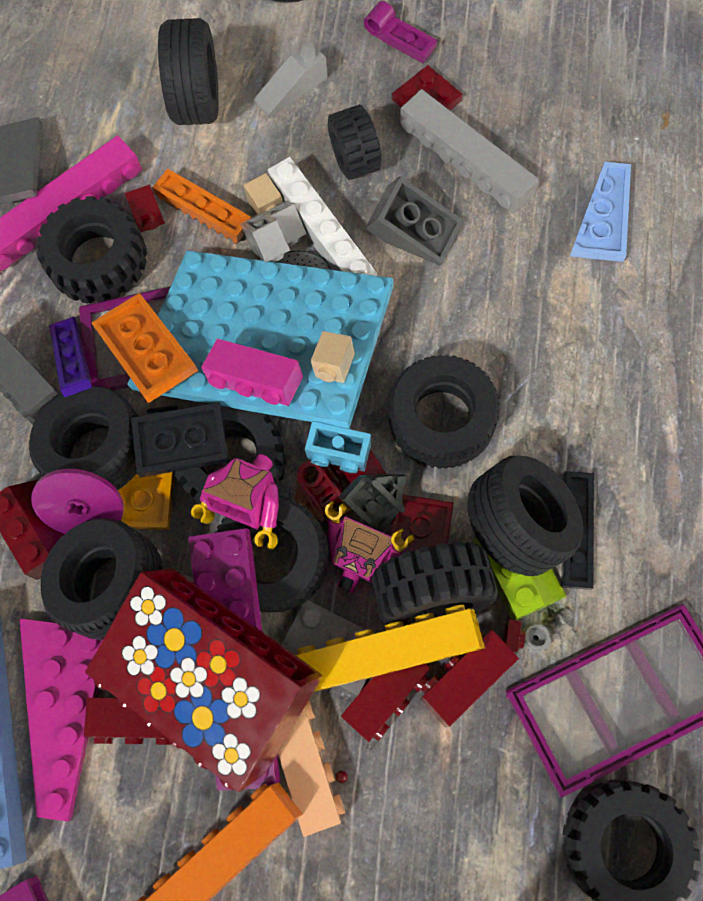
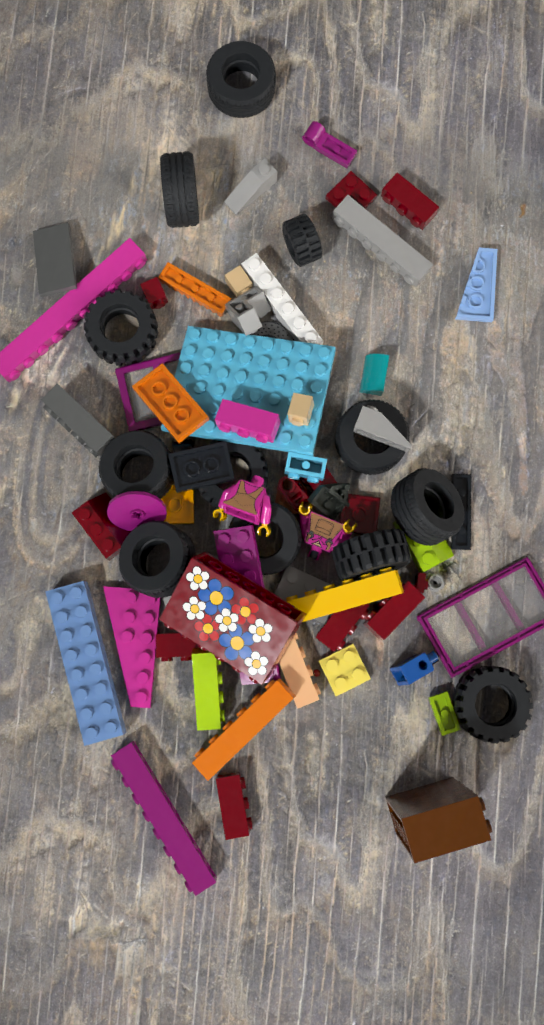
camera: 10 degrees left, 10 degrees up
(70, 357) = (116, 408): dark purple tile -> none
(158, 798) = (207, 691): none -> lime brick
(386, 774) = (344, 670): none -> light yellow plate
(414, 222) = (346, 298): dark grey slope -> none
(450, 325) = (374, 374): none -> teal brick
(451, 392) = (378, 427): none -> light grey slope
(490, 783) = (414, 668): none -> blue torso
(507, 102) = (409, 201): none -> dark red brick
(548, 859) = (444, 713): none -> lime plate

